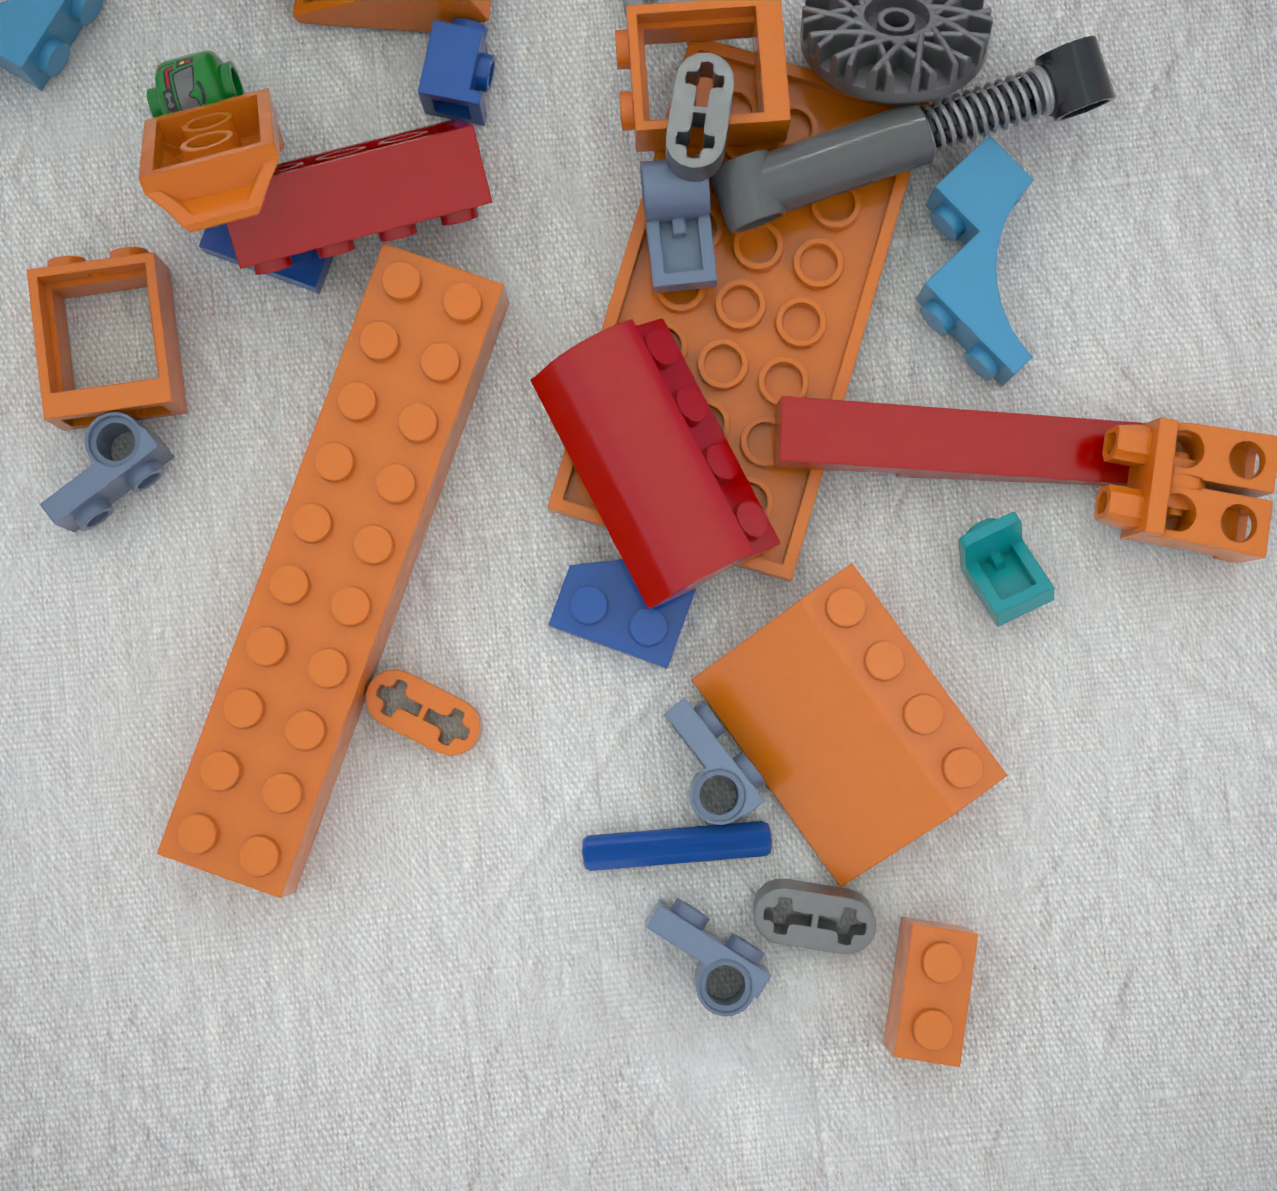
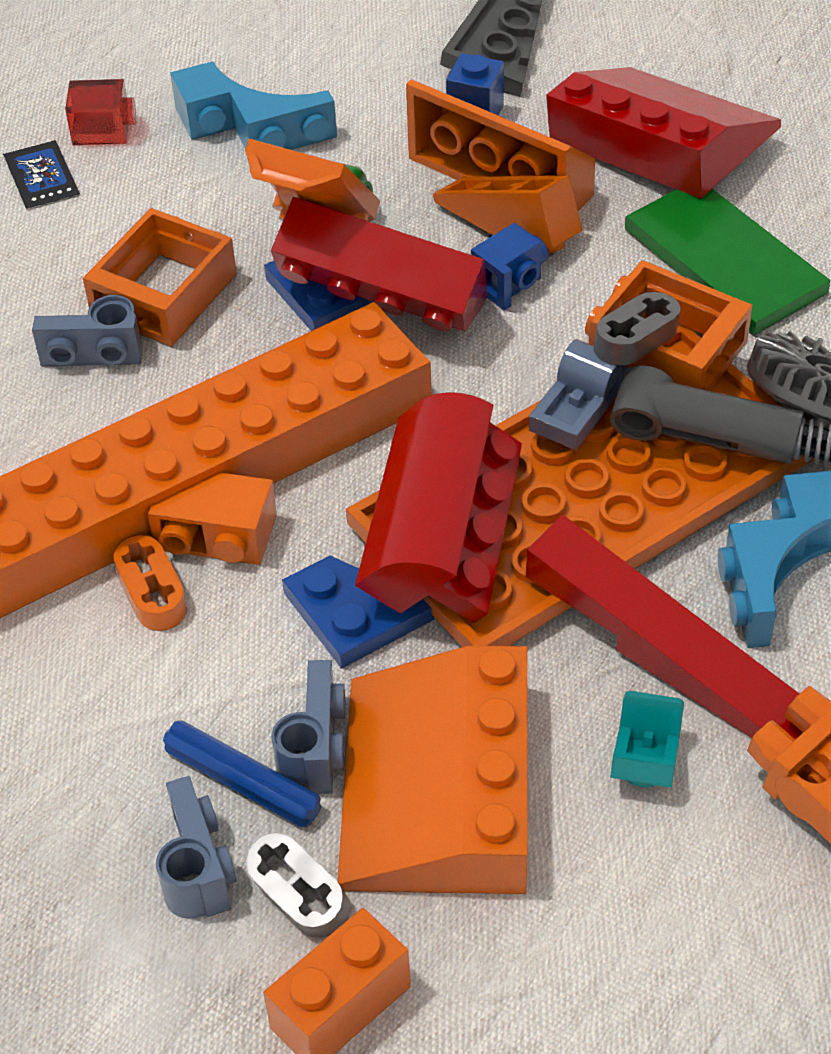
camera: 40 degrees right, 35 degrees down
(433, 600) = (217, 518): none -> orange slope

